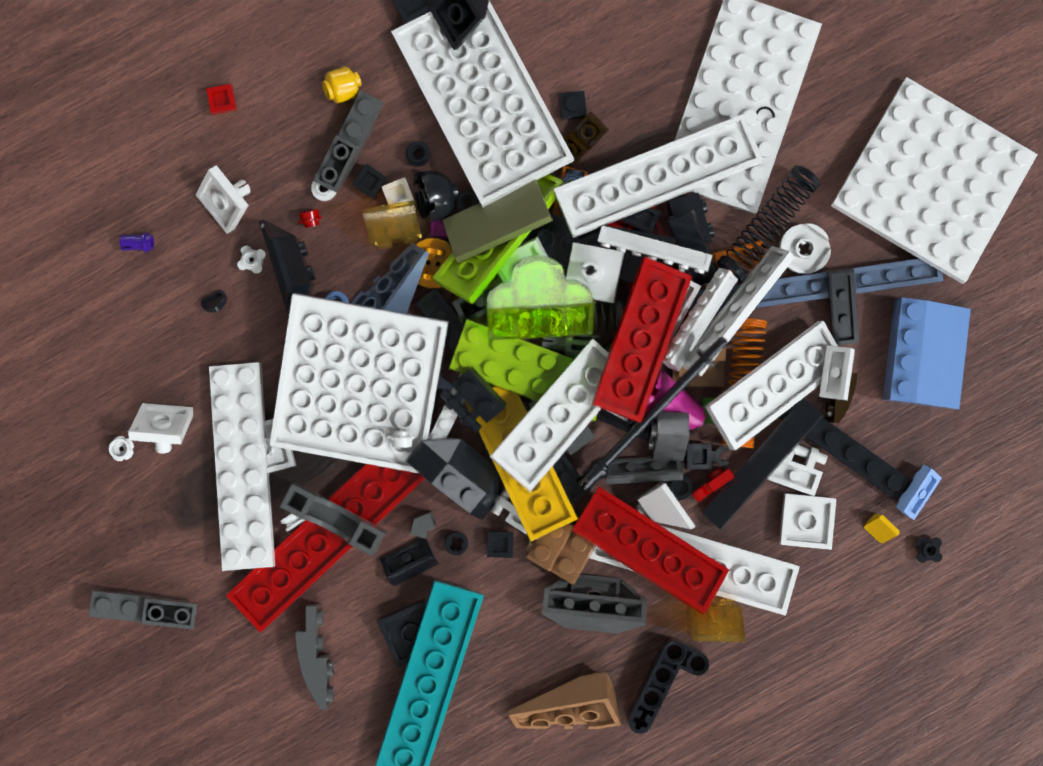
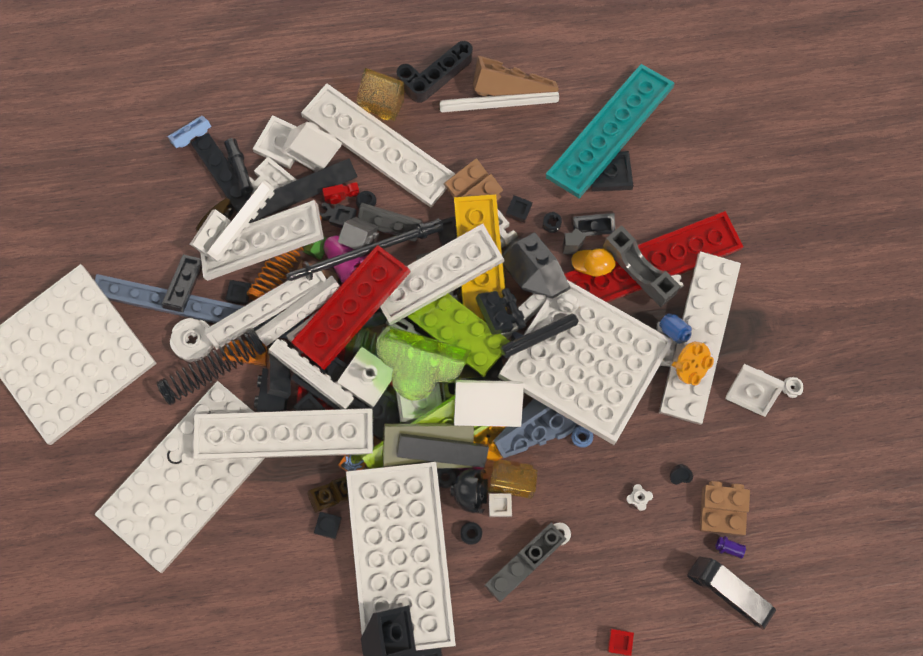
camera: 170 degrees left, 15 degrees down
(122, 193) = (732, 590): none -> beam
(143, 609) = (811, 262): dark grey slope -> none
(156, 281) = (724, 509): none -> medium nougat plate
(223, 199) = (646, 553): white tile -> none
(237, 423) = (693, 363): none -> light orange plate
(271, 459) = (676, 328): none -> blue brick
(288, 262) = (610, 481): black wedge -> none
(310, 218) = (579, 513): red plate -> none
(315, 666) = (690, 178): dark grey slope -> none
(341, 84) = (514, 615): yellow head -> none
(369, 181) = (519, 524): black plate -> none
(391, 508) = (593, 262): none -> light orange cap
(419, 386) = (539, 335): none -> black axle
(447, 285) = (488, 403): none -> white tile
(479, 219) = (442, 450): none -> black tile
(585, 668) = (497, 101): none -> white axle
(595, 604) = (463, 140): dark grey wedge -> none
(650, 550) = (408, 159): red plate -> none
(662, 507) = (385, 187): white slope -> none
(769, 522) = (311, 146): none -> white slope
(778, 323) = (237, 292): none -> black tile
(808, 397) = (241, 221): none -> white piece
(849, 478) = (236, 159): none -> black pin
(881, 528) = (228, 118): yellow slope -> none
(926, 353) = (136, 227): medium blue slope -> none
(934, 544) = (200, 96): black plate -> none

